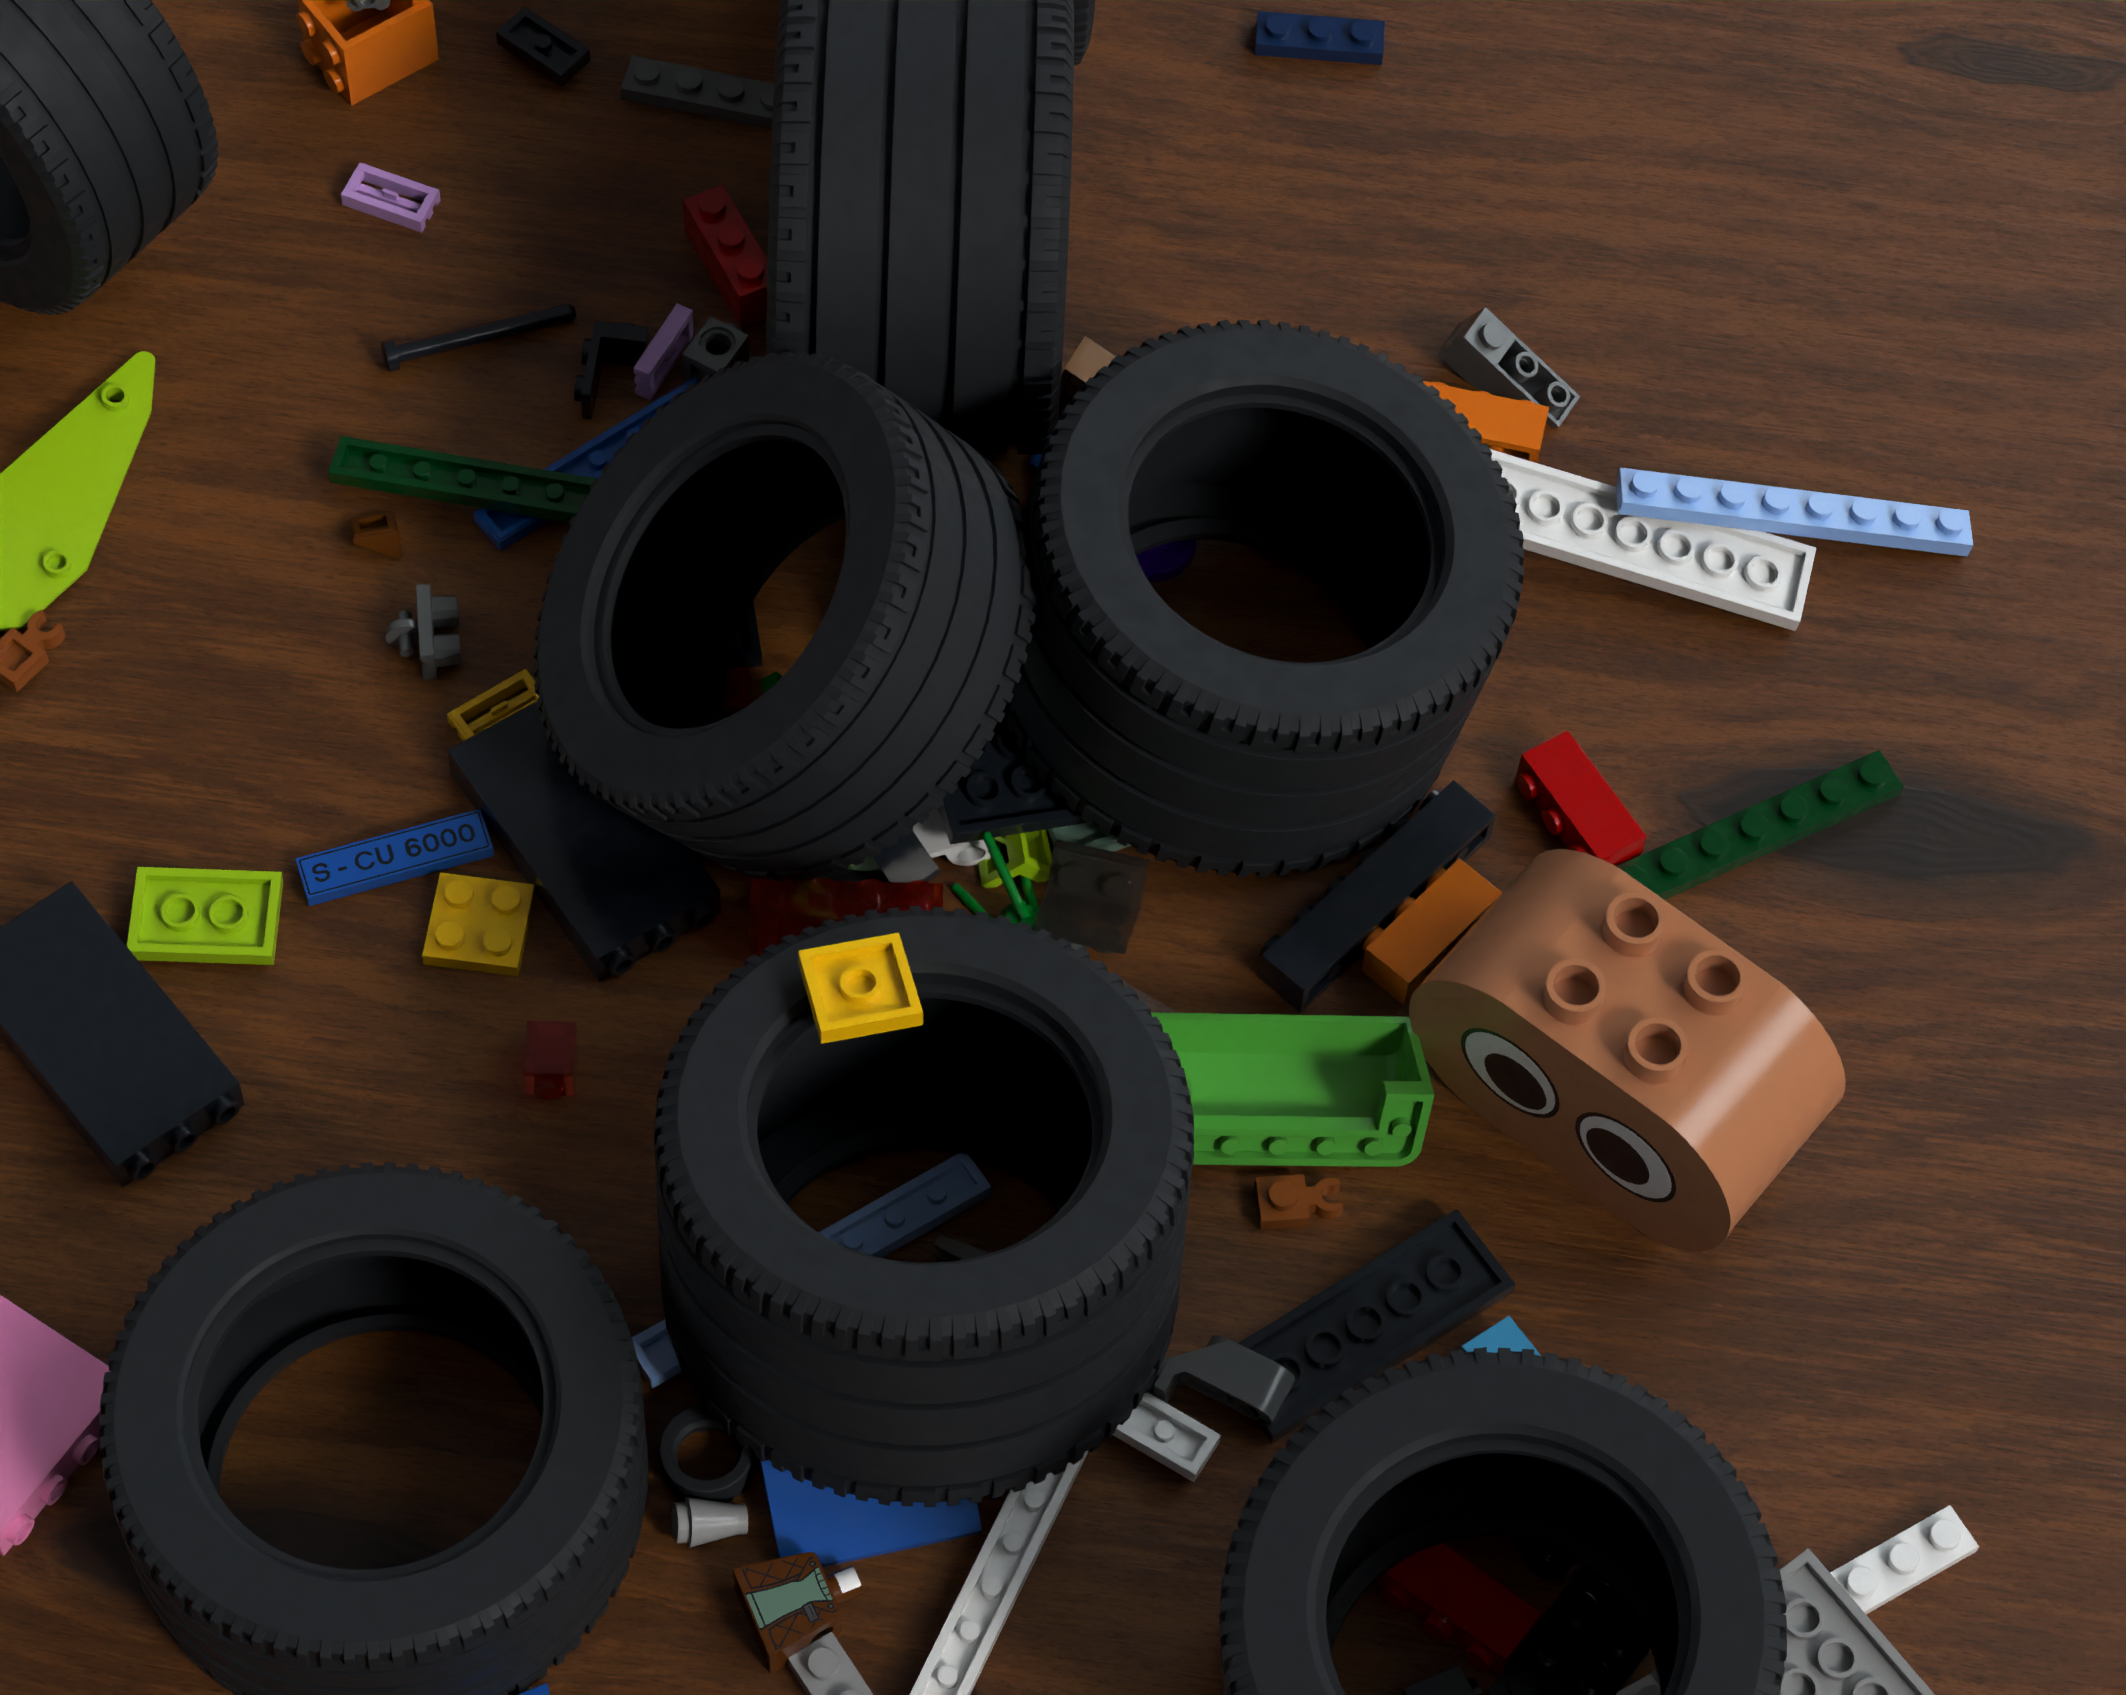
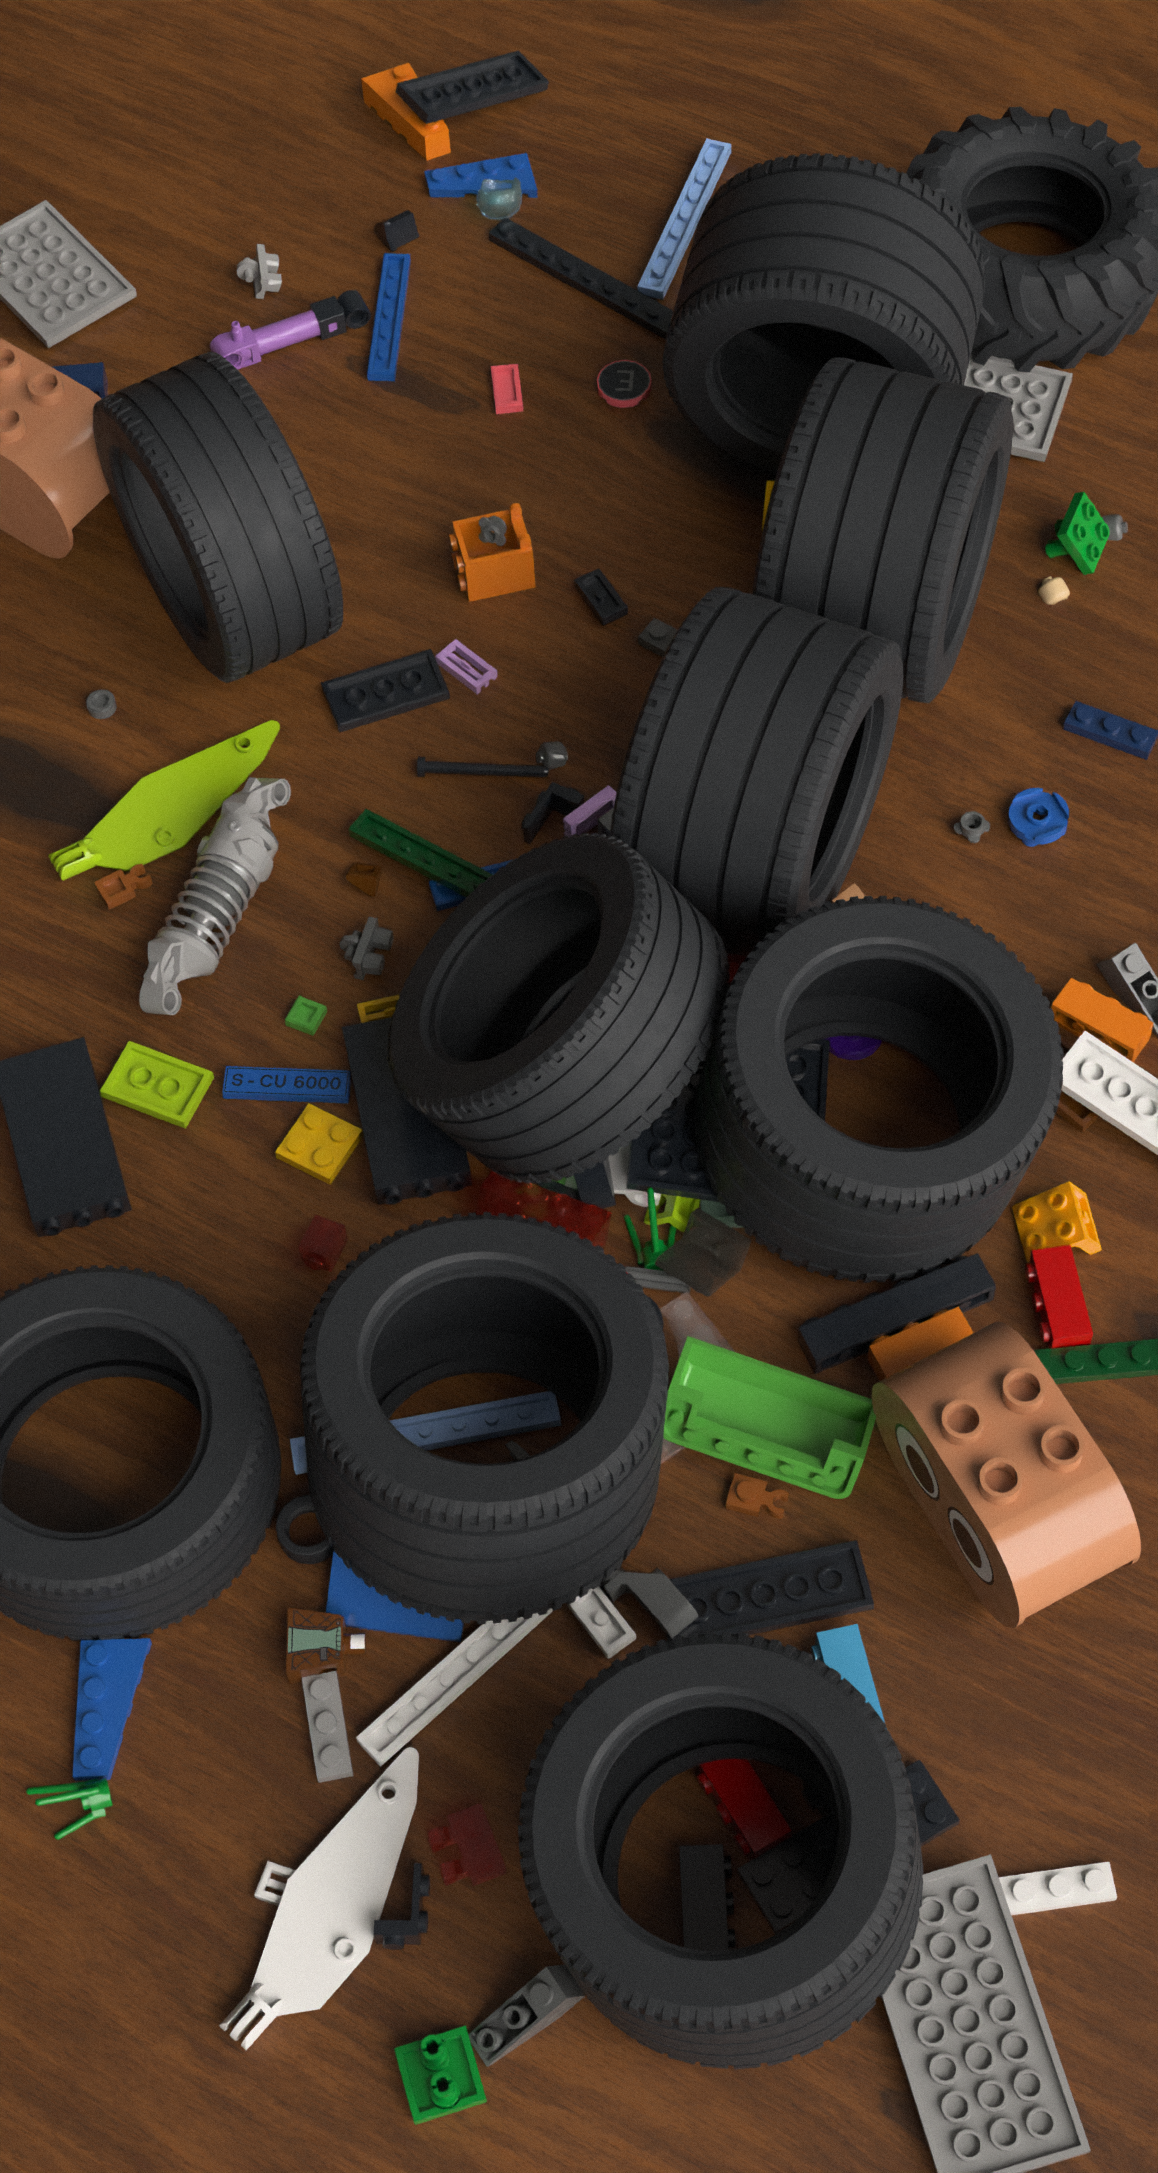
camera: 30 degrees right, 0 degrees up
(180, 602) = (225, 877): none -> light grey piece
(286, 264) = (385, 690): none -> black tile
(378, 753) = (306, 1015): none -> bright green tile
(569, 286) = (552, 754): none -> dark grey piece
(705, 1521) = (290, 1571): light grey cone -> none
(860, 988) = (479, 1263): yellow plate -> none
(1193, 209) = (972, 819): none -> dark grey plate
(1271, 200) = (1038, 831): none -> blue plate
(1530, 707) = (1056, 1219): none -> light orange bracket

